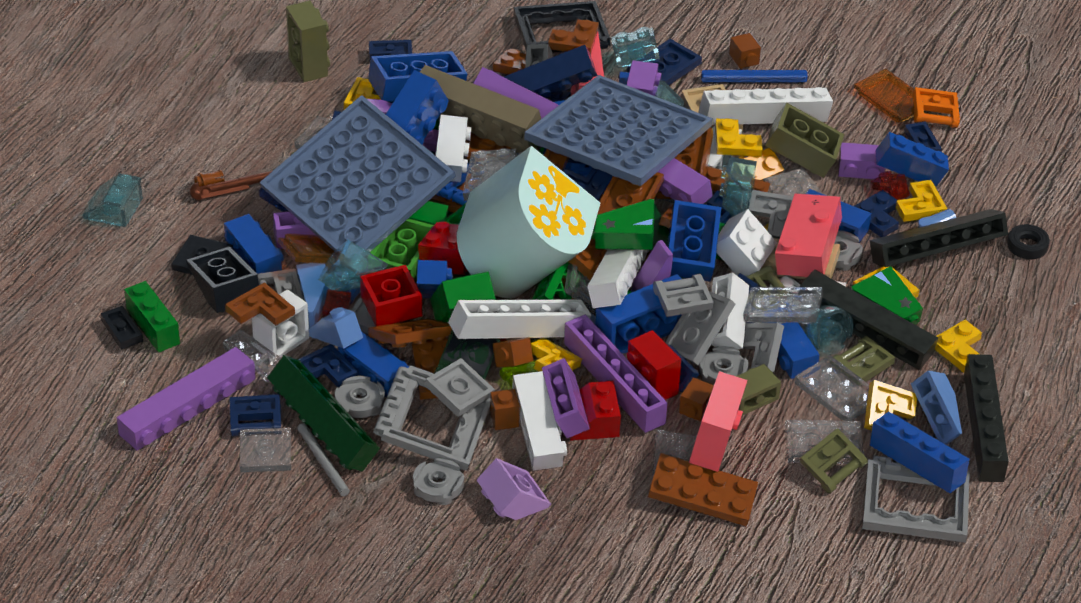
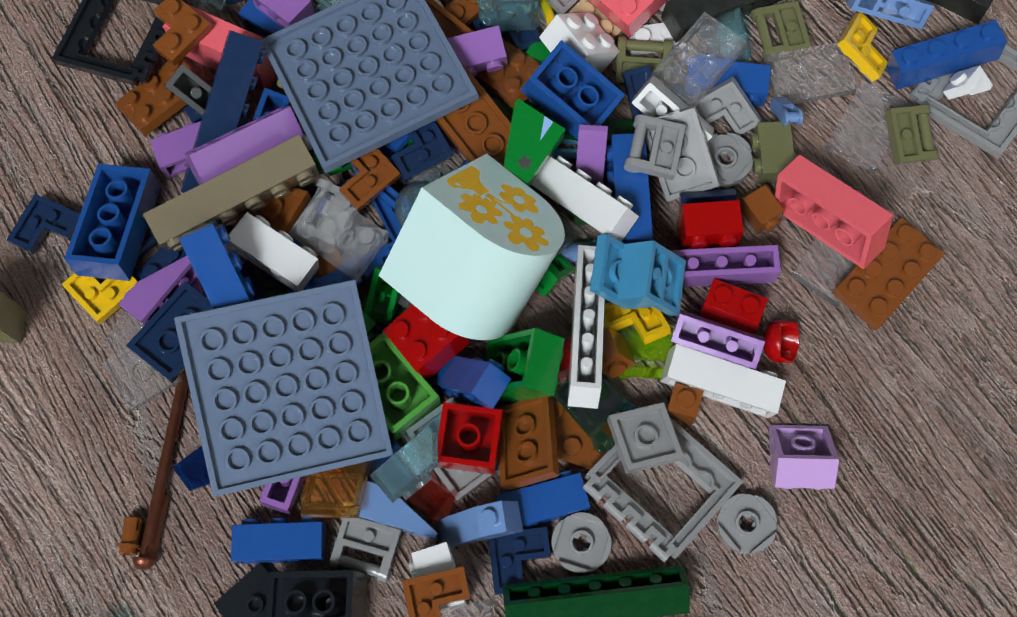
camera: 55 degrees left, 30 degrees up
(575, 322) = (638, 275): none -> dark azure bracket
(596, 445) = (781, 341): none -> red hair
(785, 373) = (786, 111): none -> medium blue bar
(906, 472) = (967, 81): none -> white bracket

